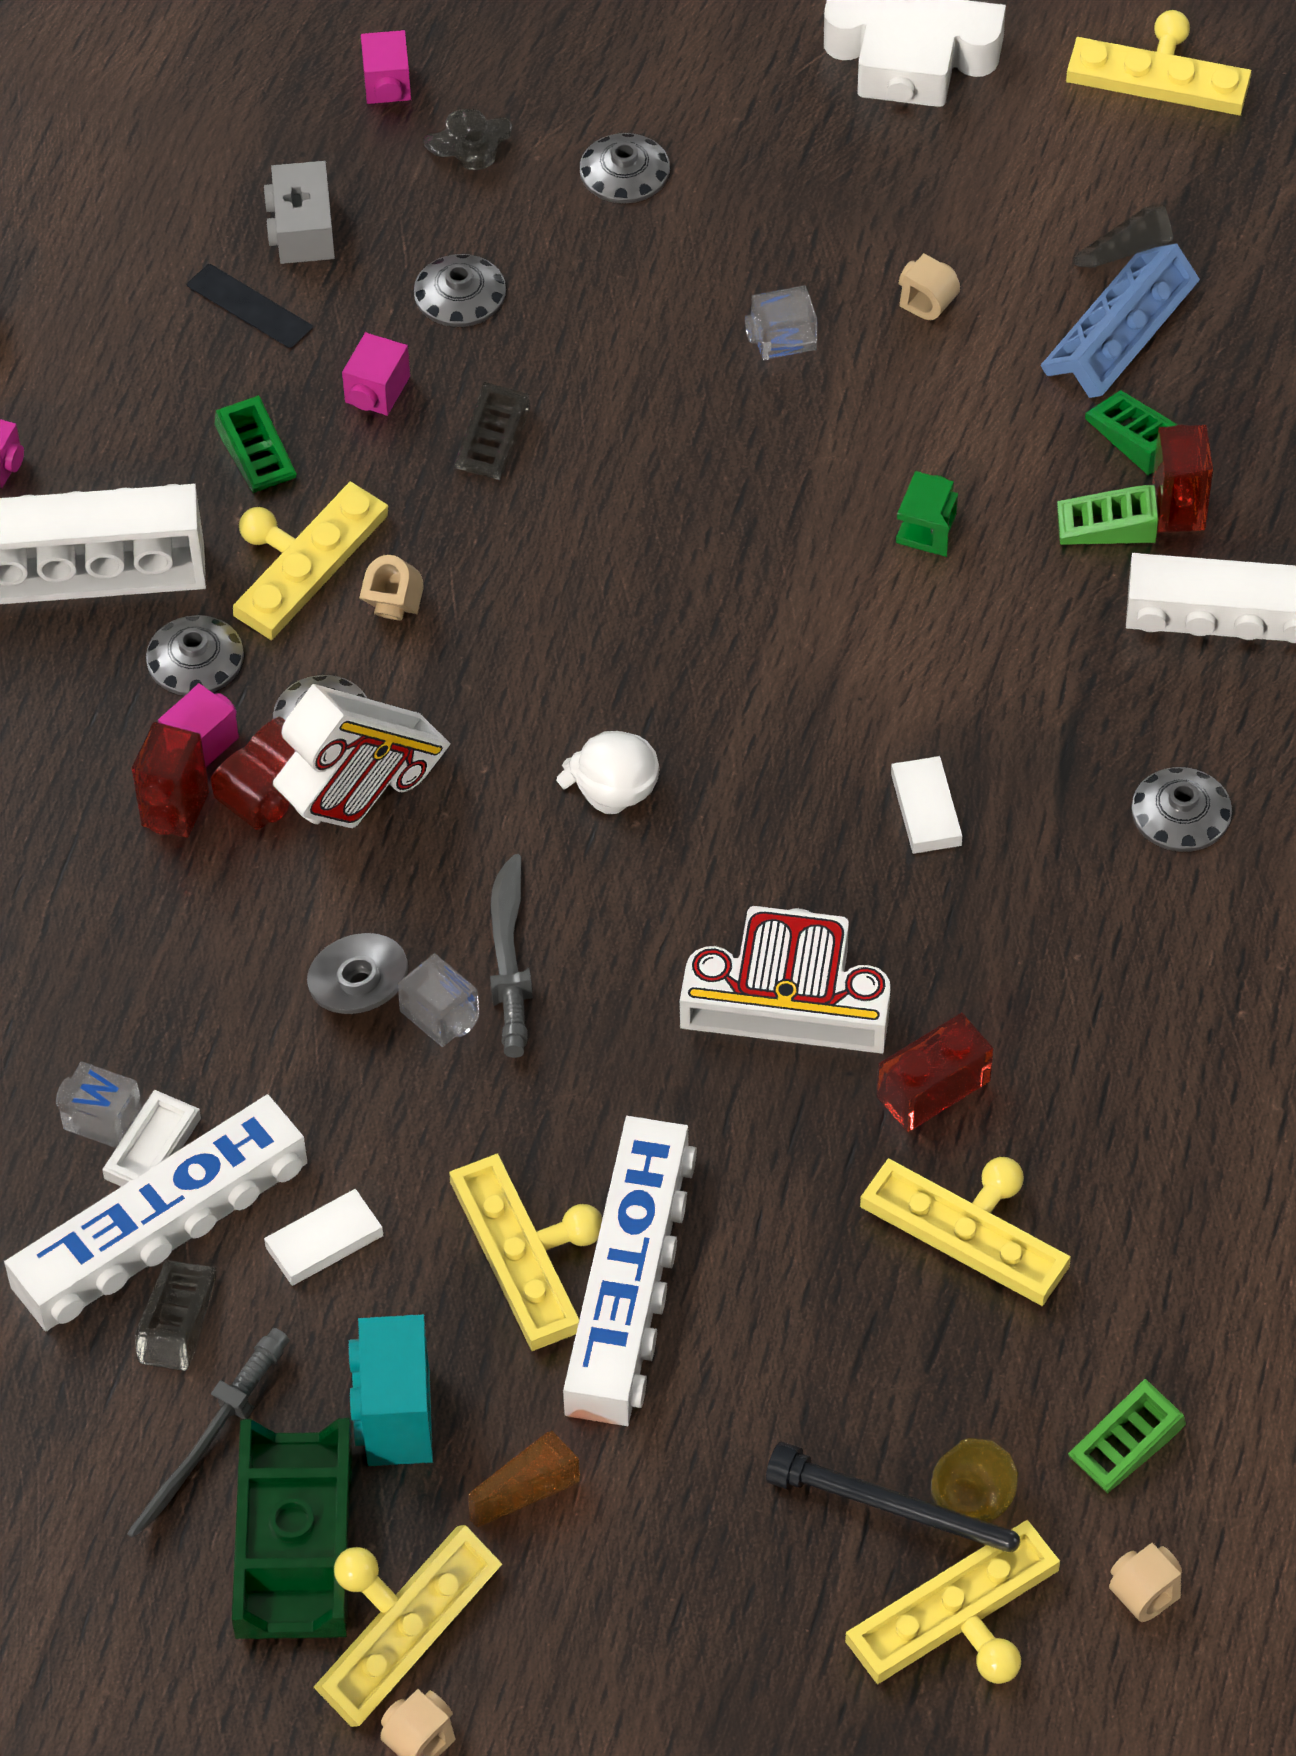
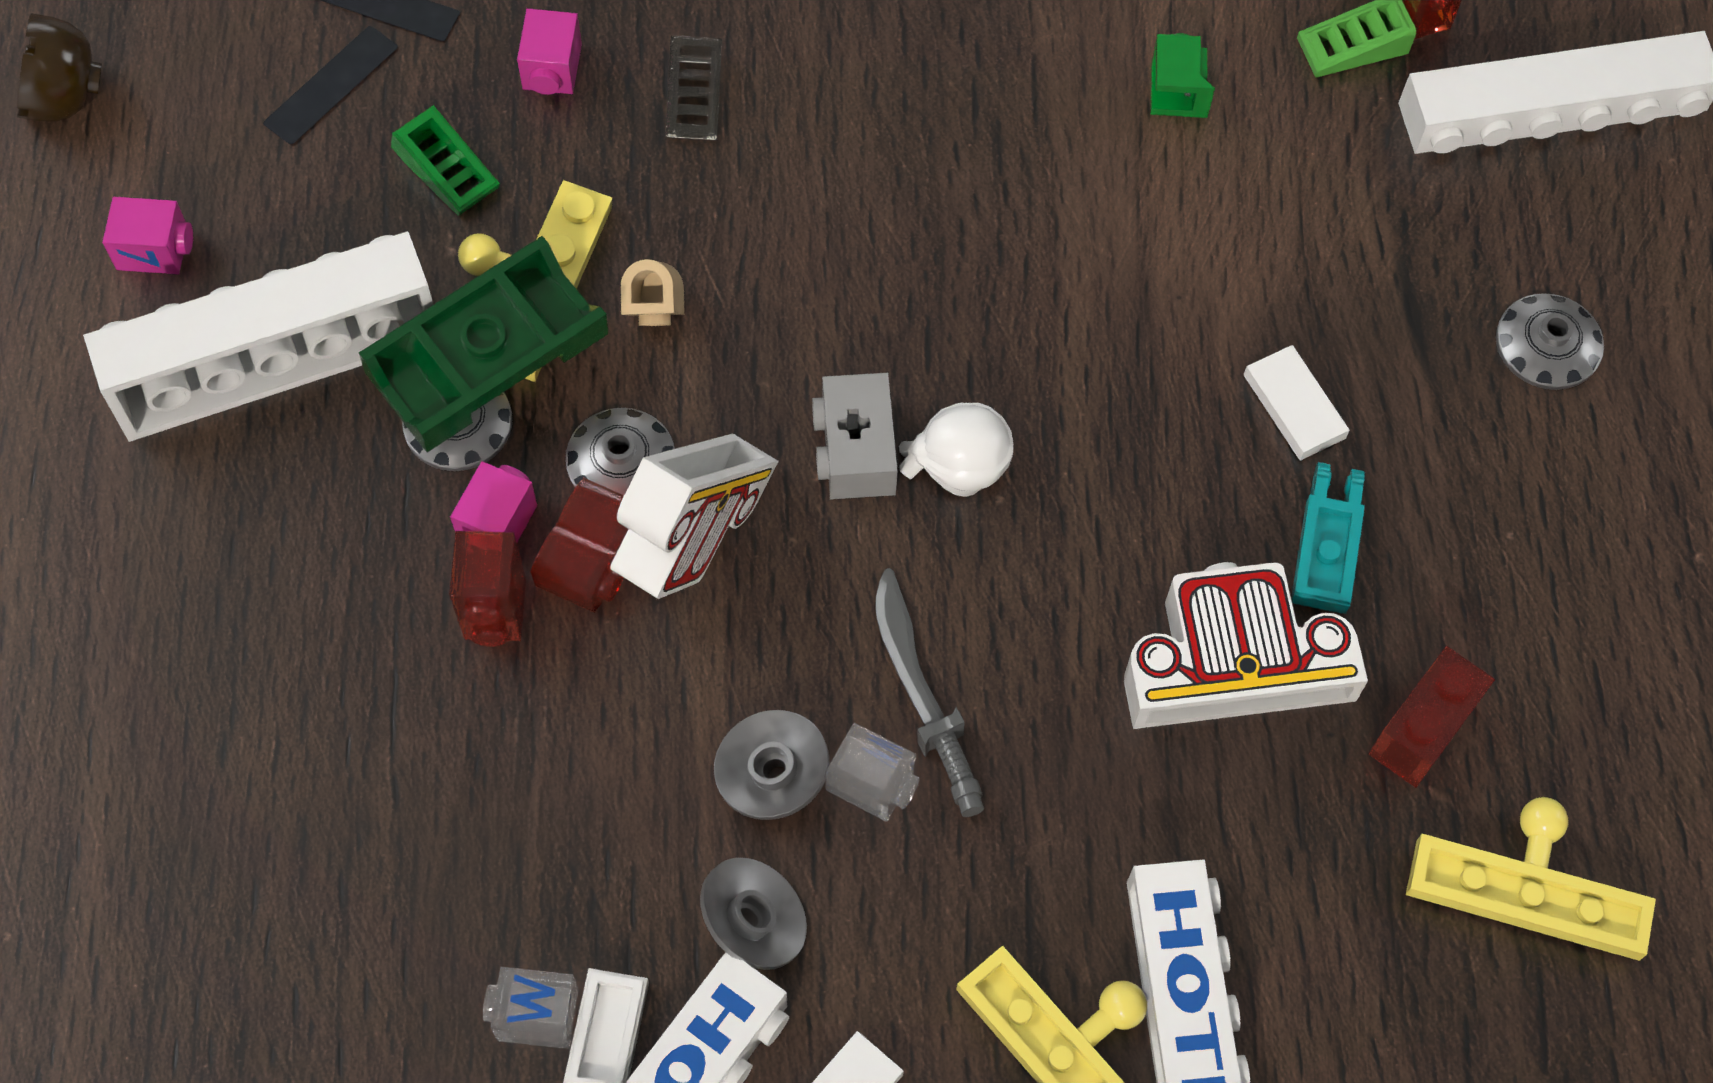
camera: 20 degrees left, 10 degrees up
(180, 363) = (330, 85): none -> black sticker
(230, 588) = (481, 343): none -> dark green piece
(301, 1078) = (753, 913): none -> flat silver dish
(526, 740) = (860, 407): none -> light grey brick
(906, 919) = (1329, 543): none -> teal hinge

